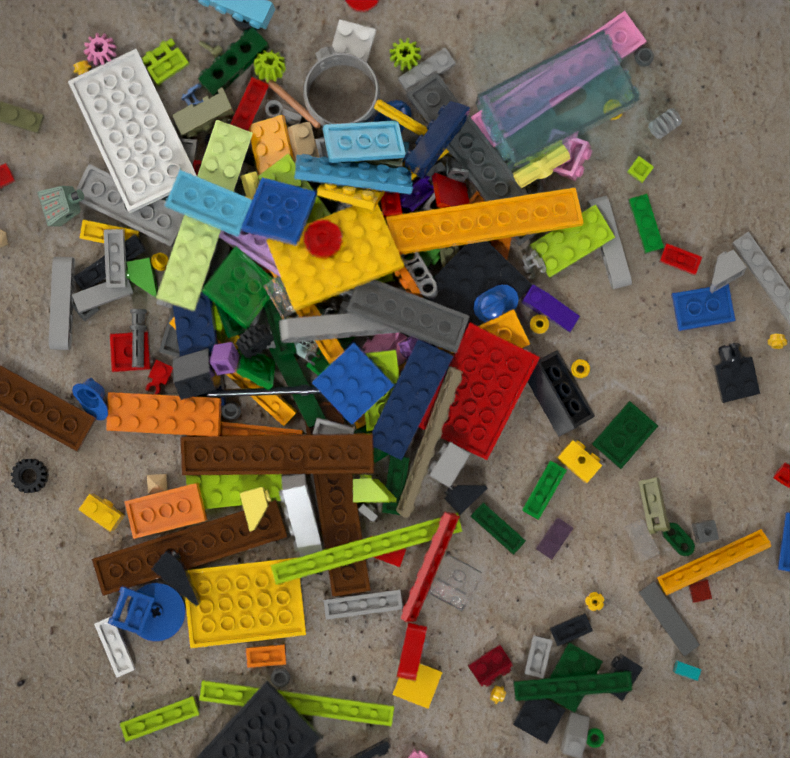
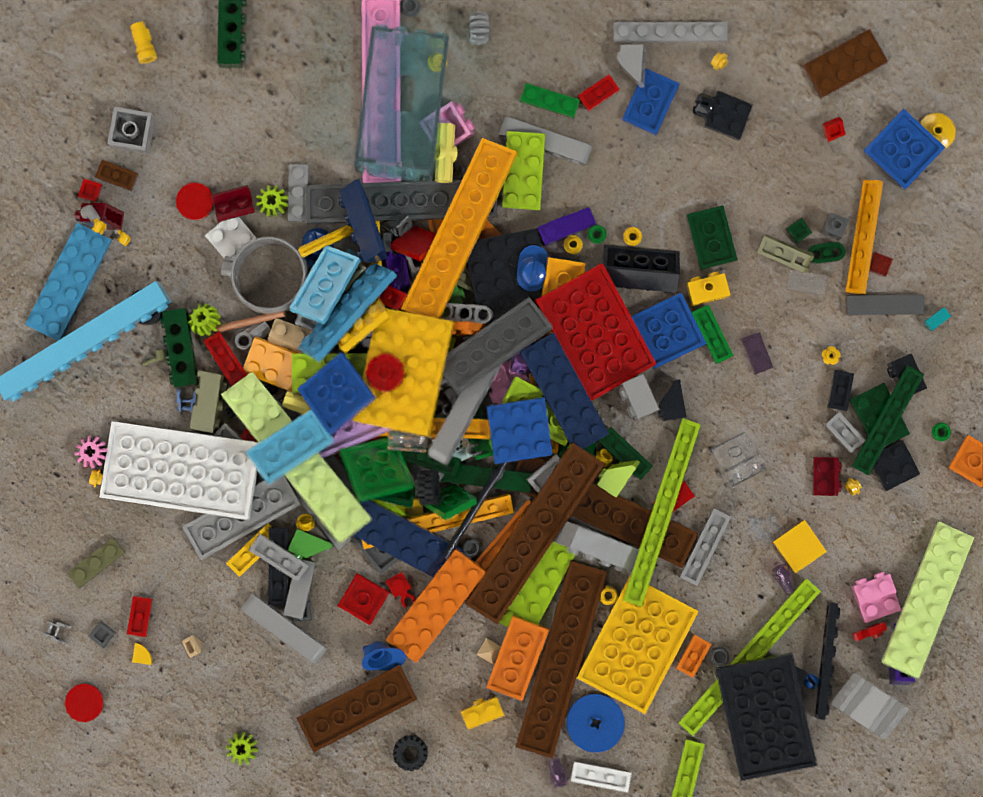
camera: 60 degrees left, 0 degrees up
(60, 204) = (200, 573): sand green torso -> none
(93, 609) = (557, 774): none -> clear purple cone
(137, 612) = (586, 739): blue plate -> none
(138, 327) = (347, 578): dark grey pin -> none
(166, 66) = (144, 404): lime plate -> none
(175, 573) = (575, 684): black slope -> none
(195, 374) = (422, 555): black slope -> none
(224, 358) = (426, 522): medium lavender brick -> none
(255, 505) = (564, 580): light yellow slope -> none
(264, 555) = (613, 599): none -> yellow plate
(369, 511) = (632, 490): light grey plate -> none
(380, 470) = (604, 456): none -> yellow plate
(381, 24) = (233, 203): none -> dark red bracket
(382, 687) = (783, 576): none -> cone
(411, 651) = (771, 533): red beam -> none
(430, 566) = (712, 470): red plate -> none
(431, 436) = (607, 397): dark tan plate -> none
(498, 528) = (718, 393): dark green plate -> none
(523, 451) = (669, 330): none -> blue plate
(537, 261) = (519, 210): light grey piece -> none
(566, 334) = (601, 230): none -> green plate
(575, 735) = (928, 446): light grey slope -> none
(640, 169) = (502, 74): lime plate -> none
(681, 503) = (798, 230): none -> dark green tile

